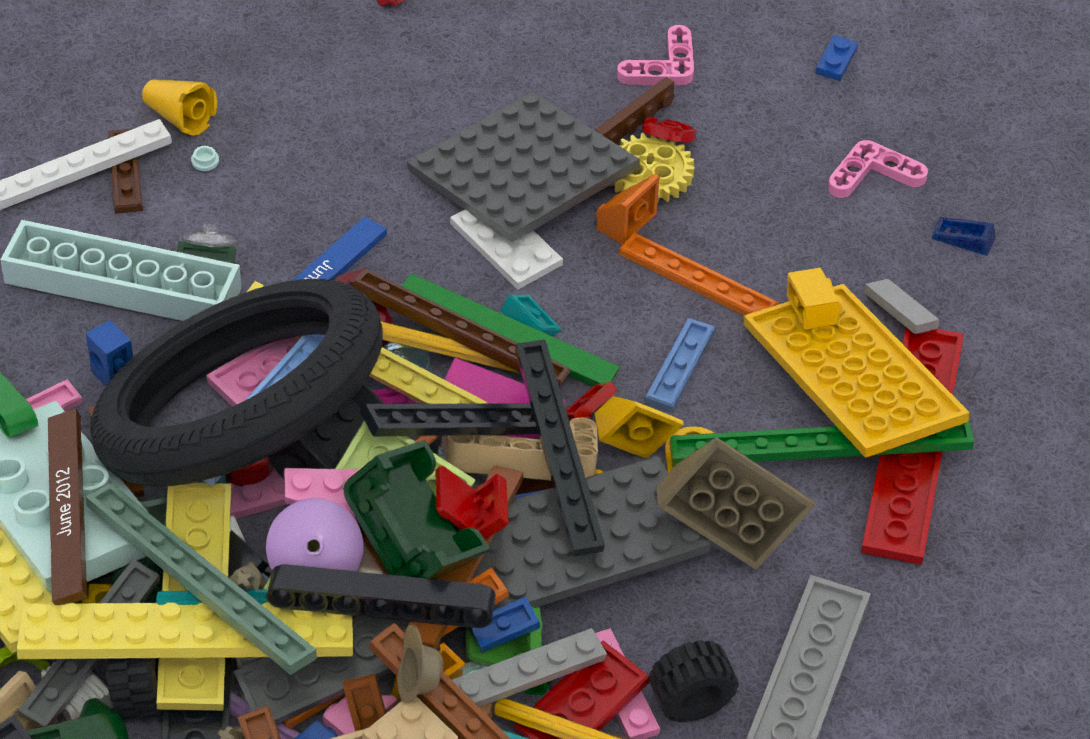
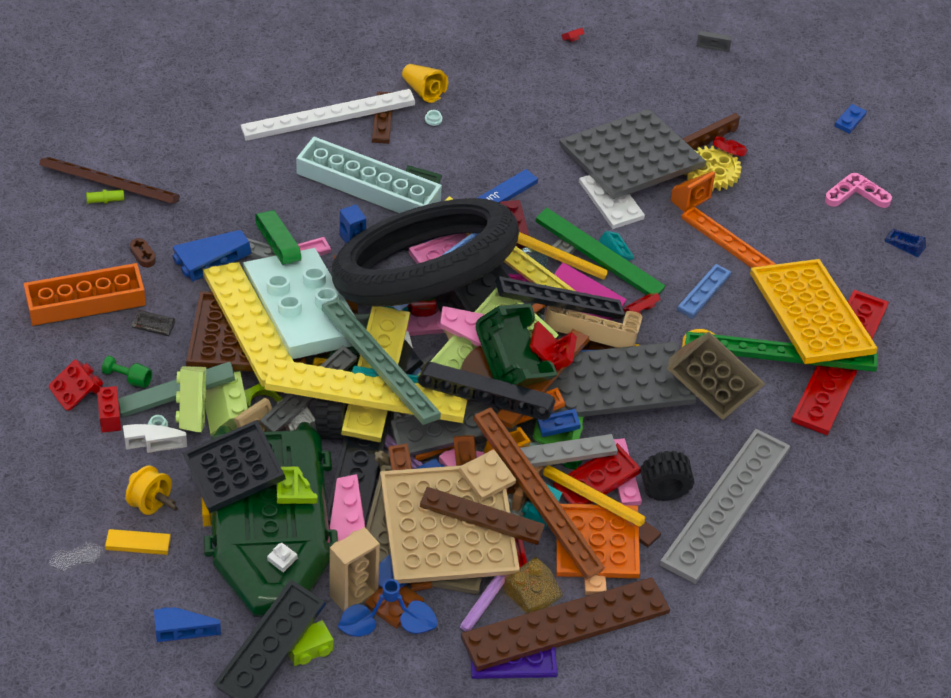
camera: 10 degrees right, 0 degrees up
(66, 508) = (309, 308): reddish brown tile -> none
(210, 236) = (427, 165): clear dish -> none
(248, 577) = (410, 367): dark tan axle -> none
(315, 520) = (457, 339): lavender dish -> none
(419, 667) = (500, 435): dark tan piece -> none
(444, 321) = (571, 246): reddish brown tile -> none
(559, 448) = (614, 324): black plate -> none
(634, 426) = (665, 321): yellow slope -> none
(668, 68) = (739, 108): bright pink beam -> none
(813, 298) = (796, 263): yellow brick -> none
(901, 306) = (853, 278): light grey tile -> none

